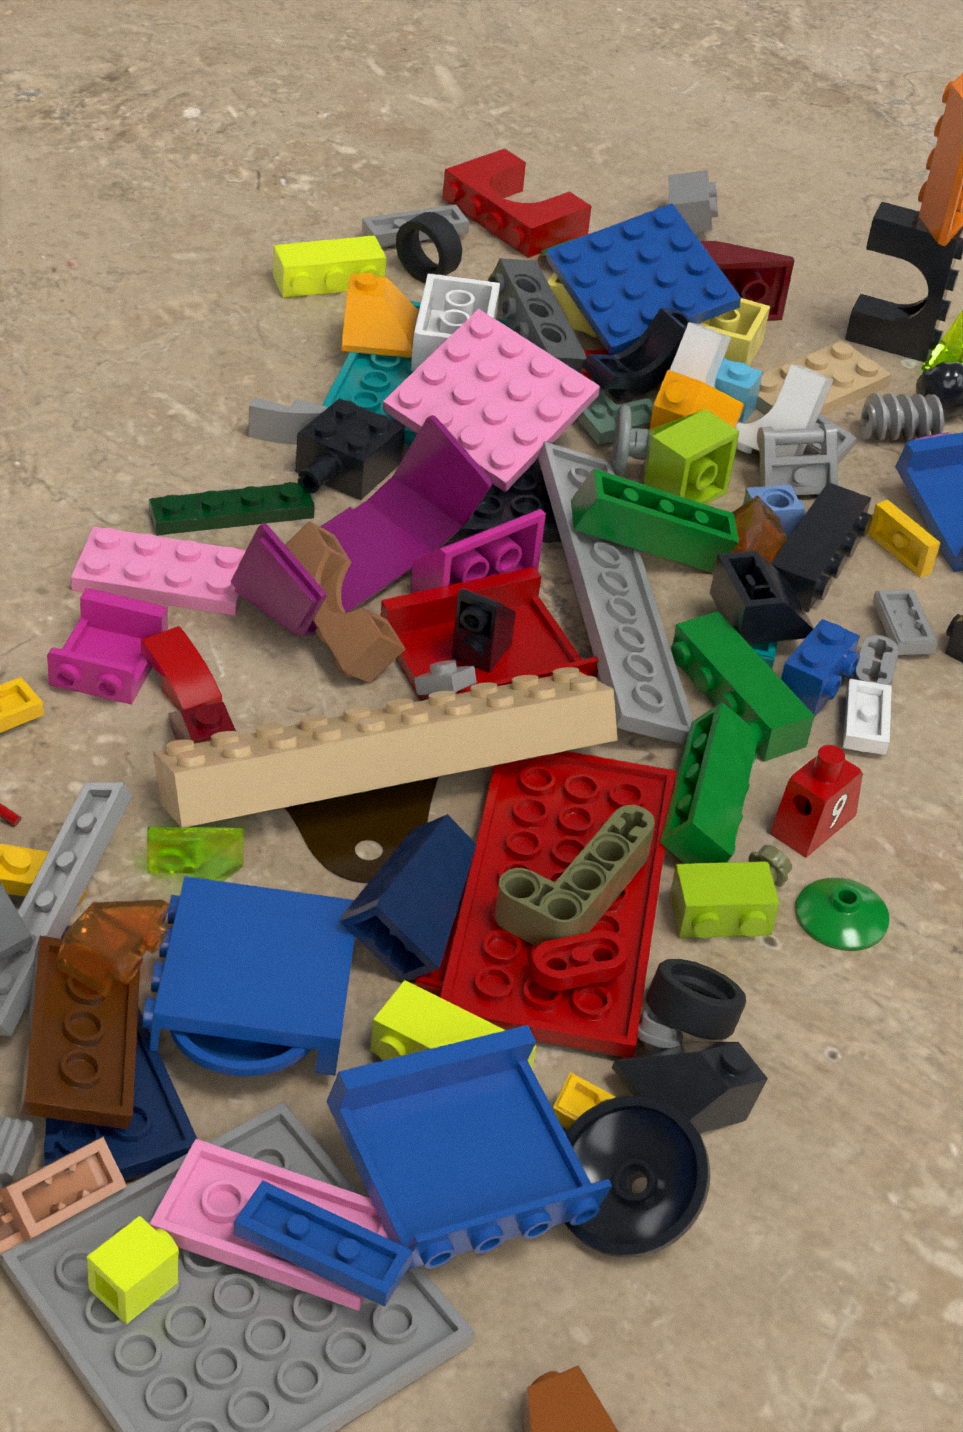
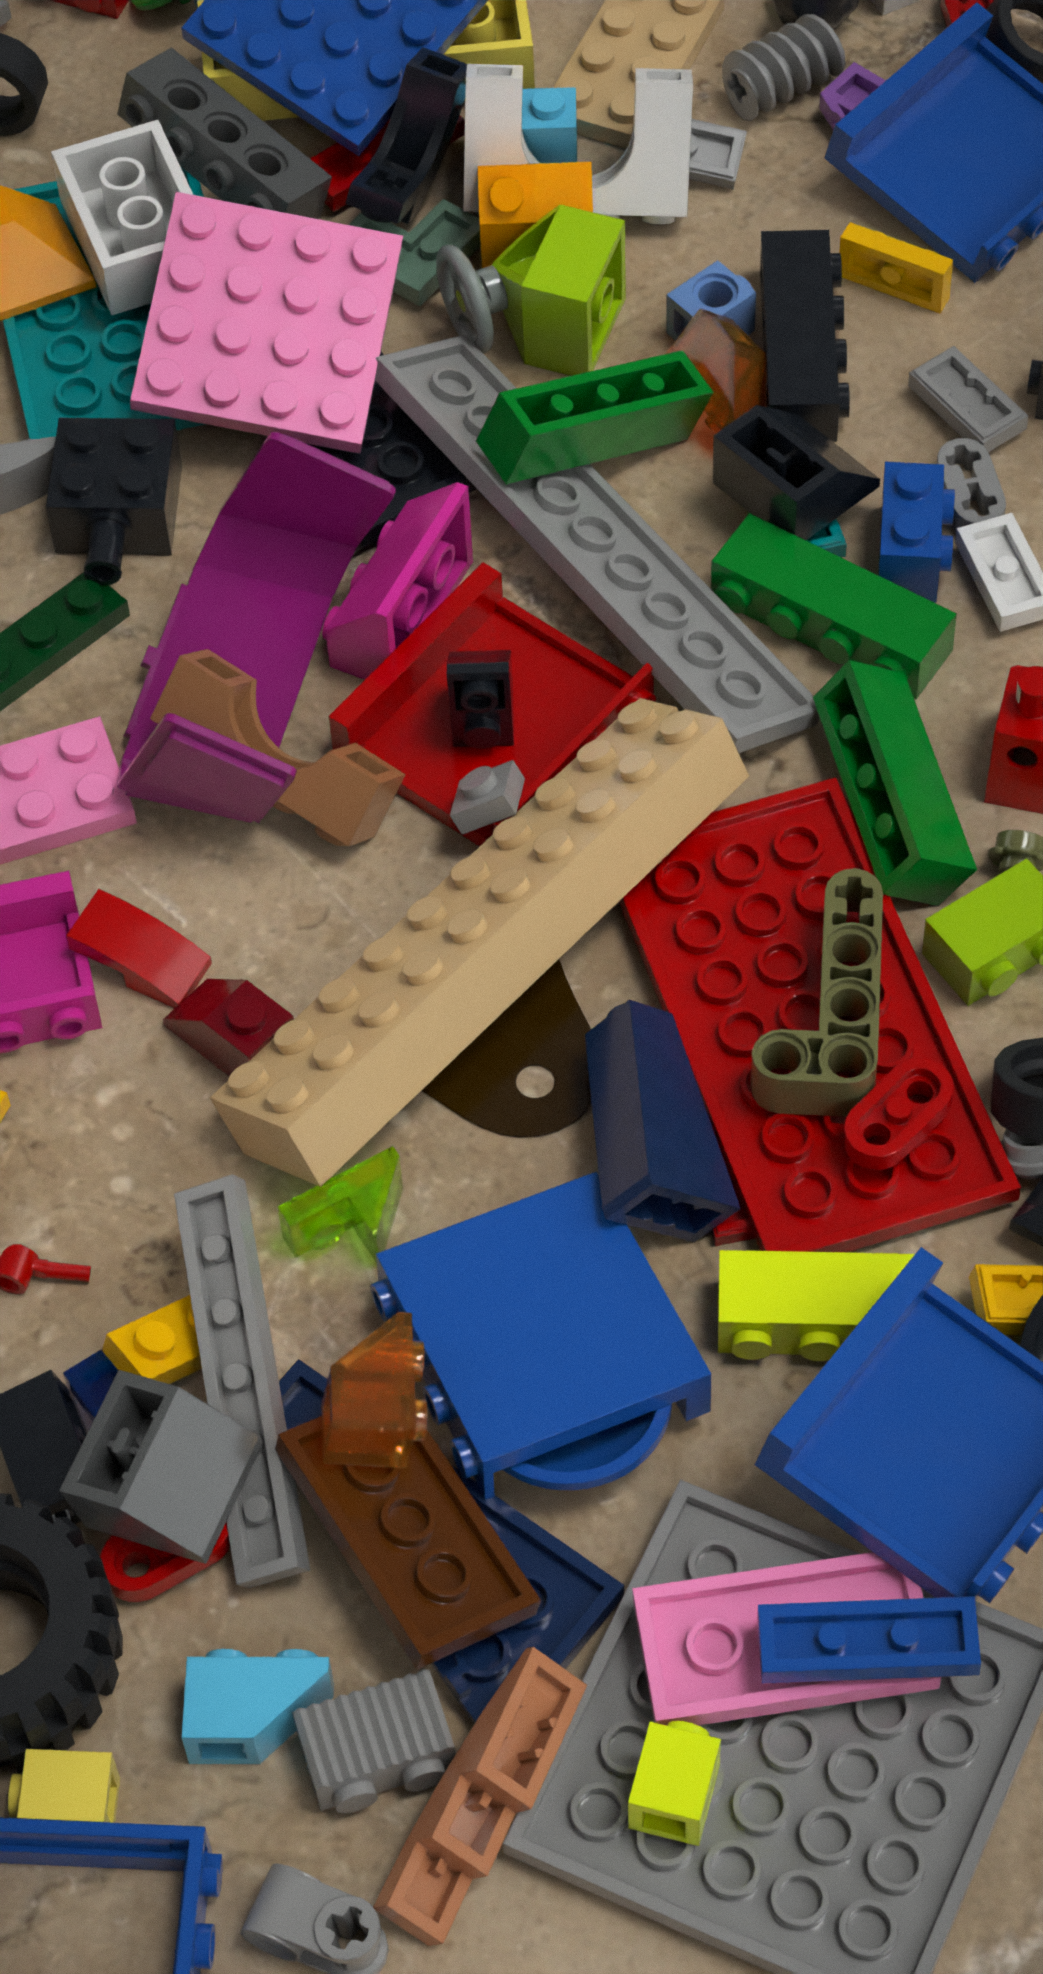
camera: 20 degrees left, 15 degrees up
(803, 472) = (707, 227): light grey plate -> none

